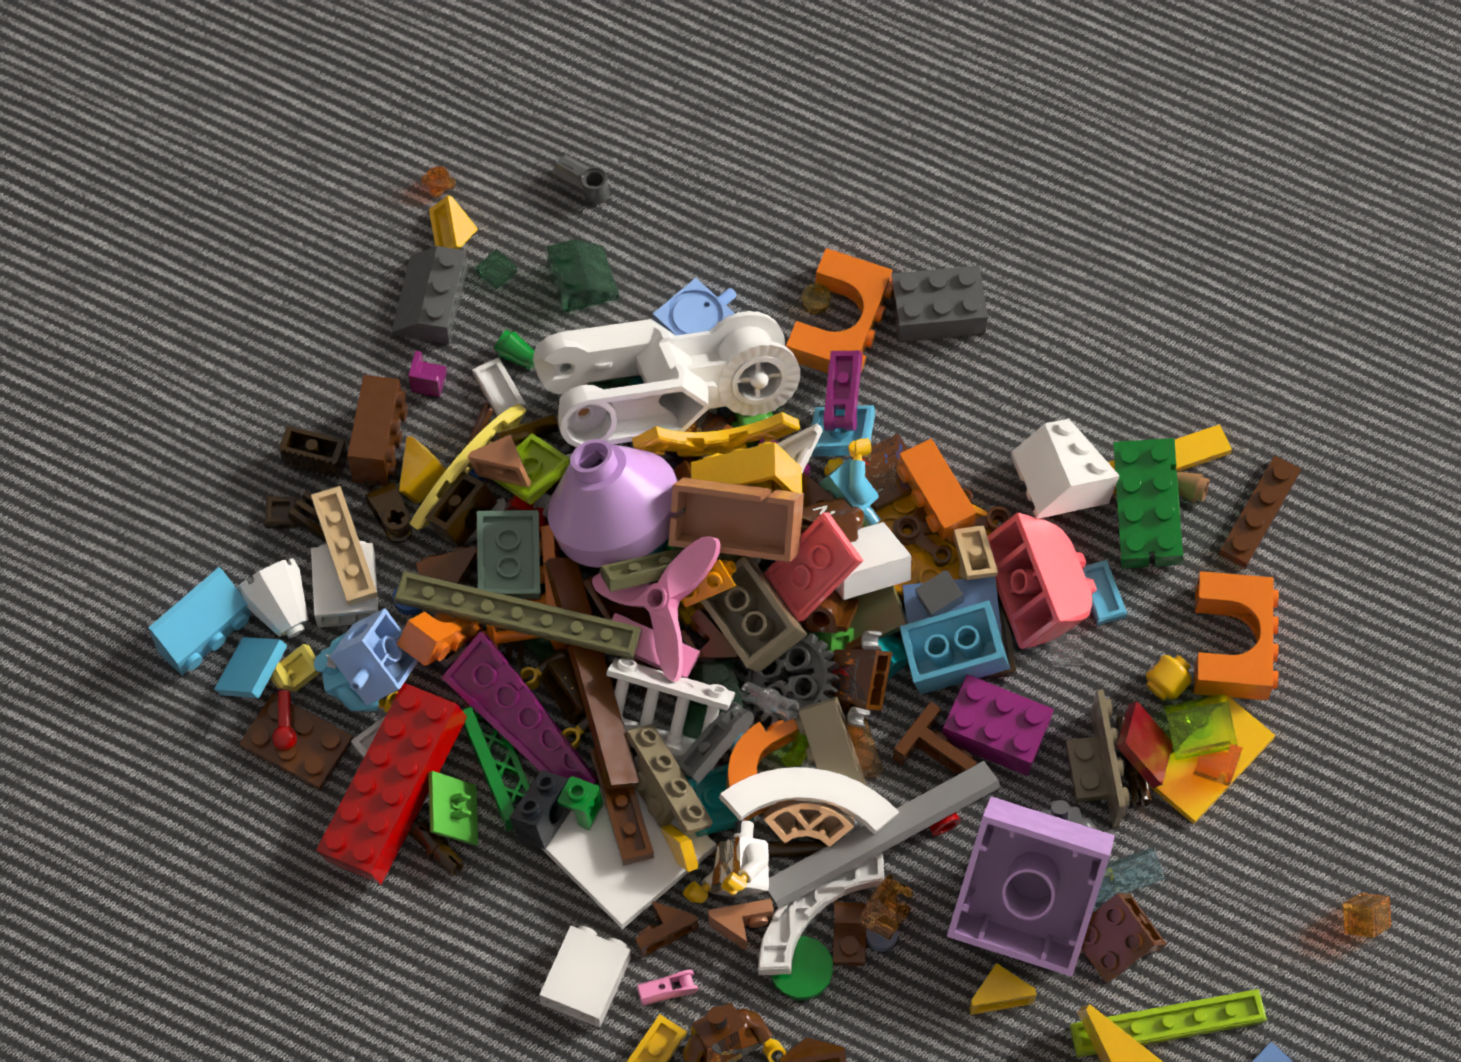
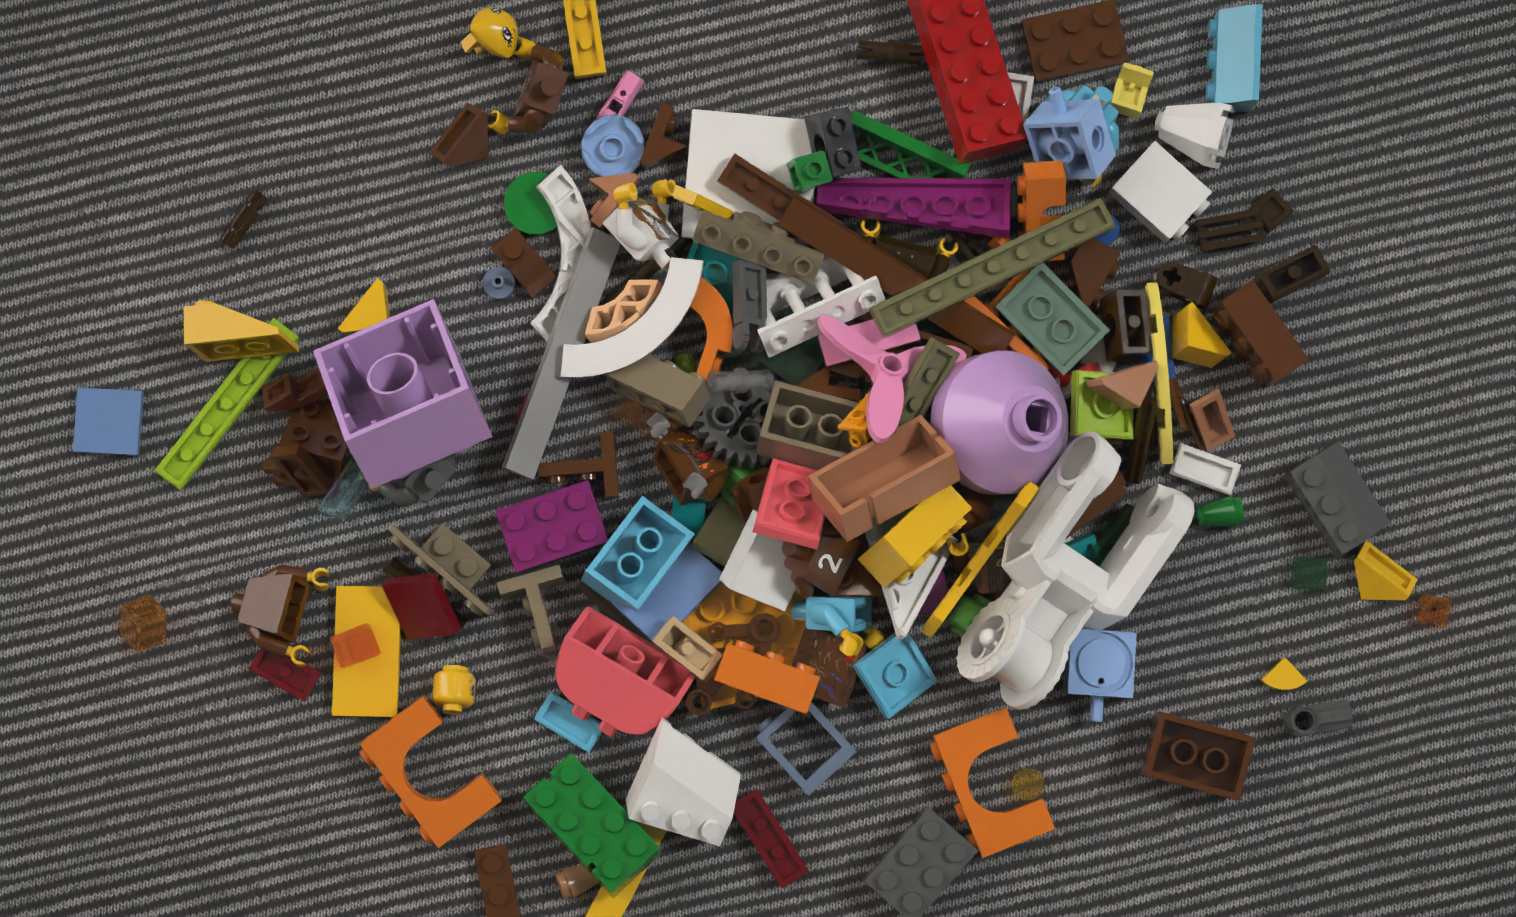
camera: 135 degrees right, 20 degrees up
(250, 667) = (1162, 59): medium azure tile -> none
(284, 736) = (1084, 30): red bar -> none
(344, 546) = (1185, 211): tan plate -> none
(426, 377) = (1270, 425): magenta panel -> none
(453, 808) = (903, 87): bright green piece -> none
(461, 411) = (1212, 420): none -> nougat slope
(578, 223) = (1283, 676): none -> yellow tile
(580, 274) = (1234, 628): clear green slope -> none
(585, 975) = (687, 53): white brick -> none
(686, 217) = (1197, 755): none -> reddish brown brick
(705, 956) = (612, 145): none -> light blue tile
(842, 390) = (921, 702): magenta plate -> none
(884, 911) = (506, 297): clear orange hinge -> none
(939, 594) = (684, 582): dark grey panel -> none
(951, 414) = (822, 773): none -> sand blue window
(1027, 401) = (769, 838): none -> dark red plate
(1058, 683) = (532, 585): none -> dark tan bracket
(1107, 982) = (291, 393): none -> copper slope
(1155, 921) = (297, 468): none -> reddish brown hinge
(1200, 726) = (395, 667): clear neon green slope -> none
(1256, 836) = (275, 607): none -> reddish brown torso
(1285, 793) = (285, 674): none -> dark red plate

